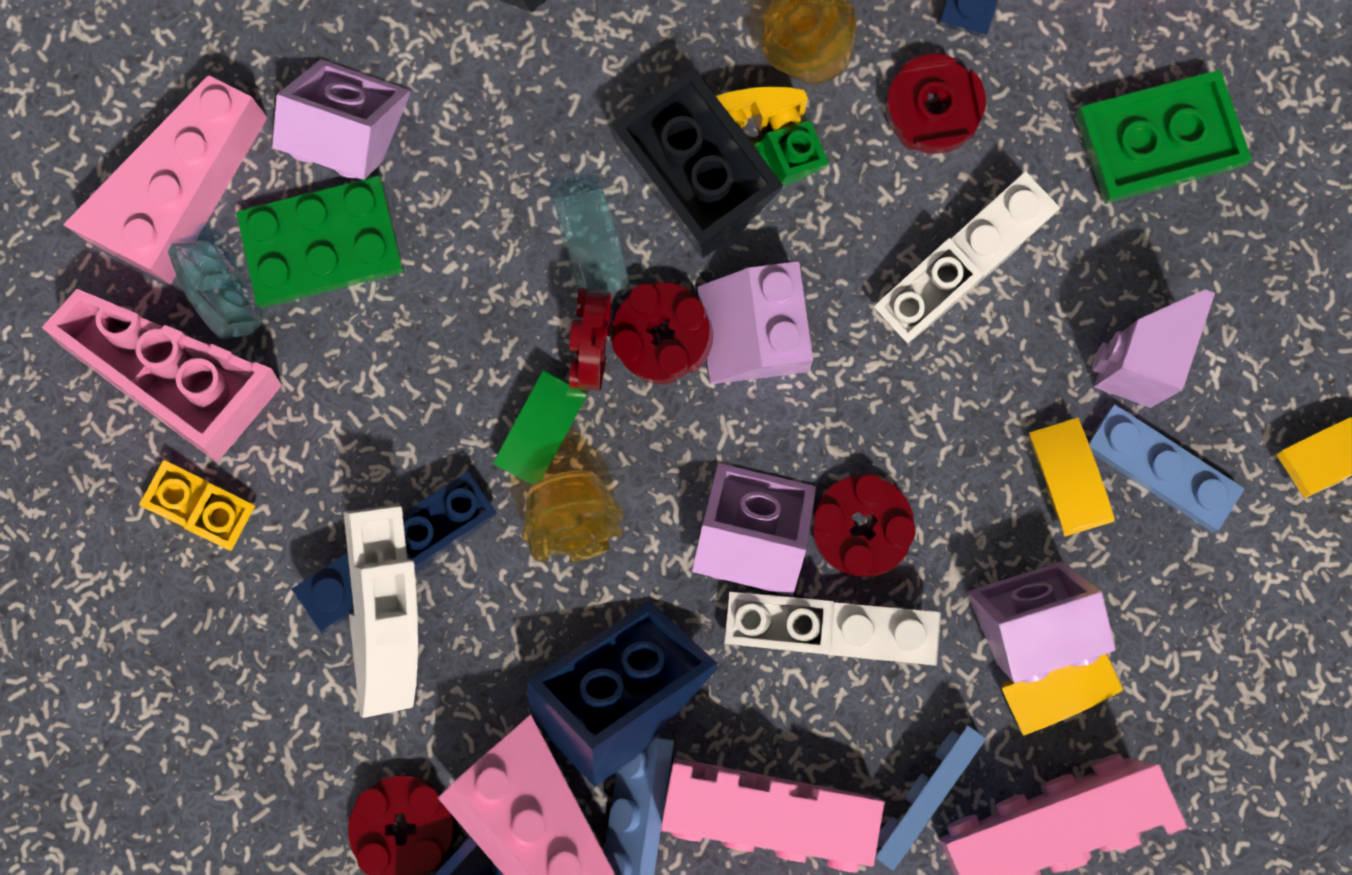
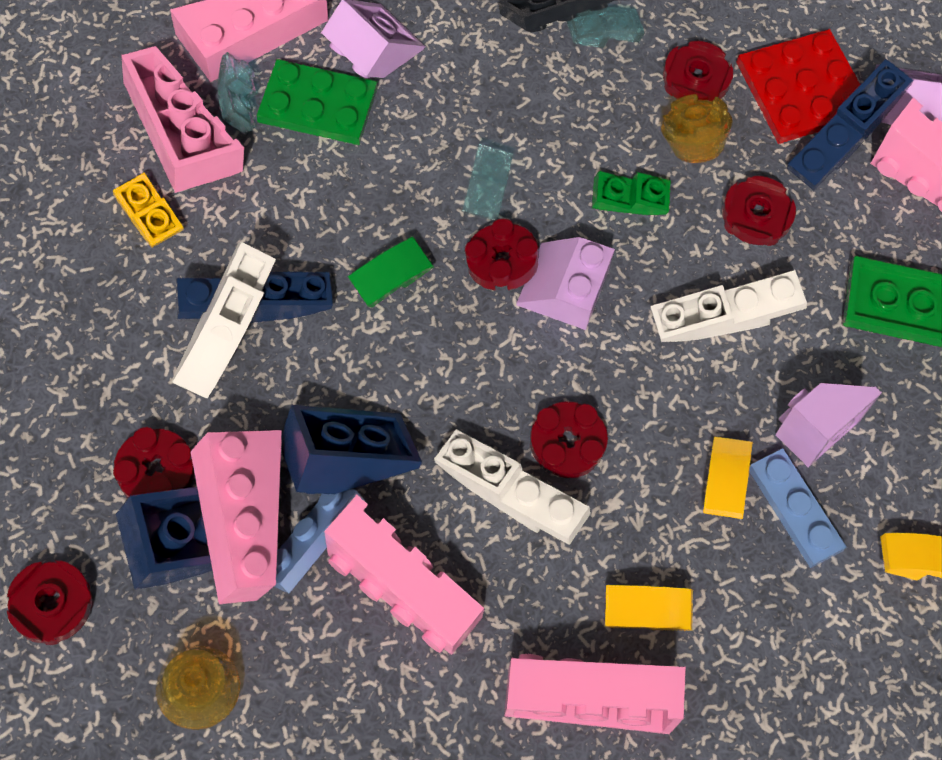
camera: 20 degrees right, 15 degrees down
(570, 516) = (378, 329): clear yellow cone -> none
(589, 339) = (456, 227): dark red plate -> none
(697, 162) = (581, 165): black slope -> none
(755, 529) = (493, 401): lavender slope -> none
(768, 106) = (647, 157): yellow slope -> none
(927, 796) = (517, 629): medium blue plate -> none
(1043, 621) = (657, 554): lavender slope -> none

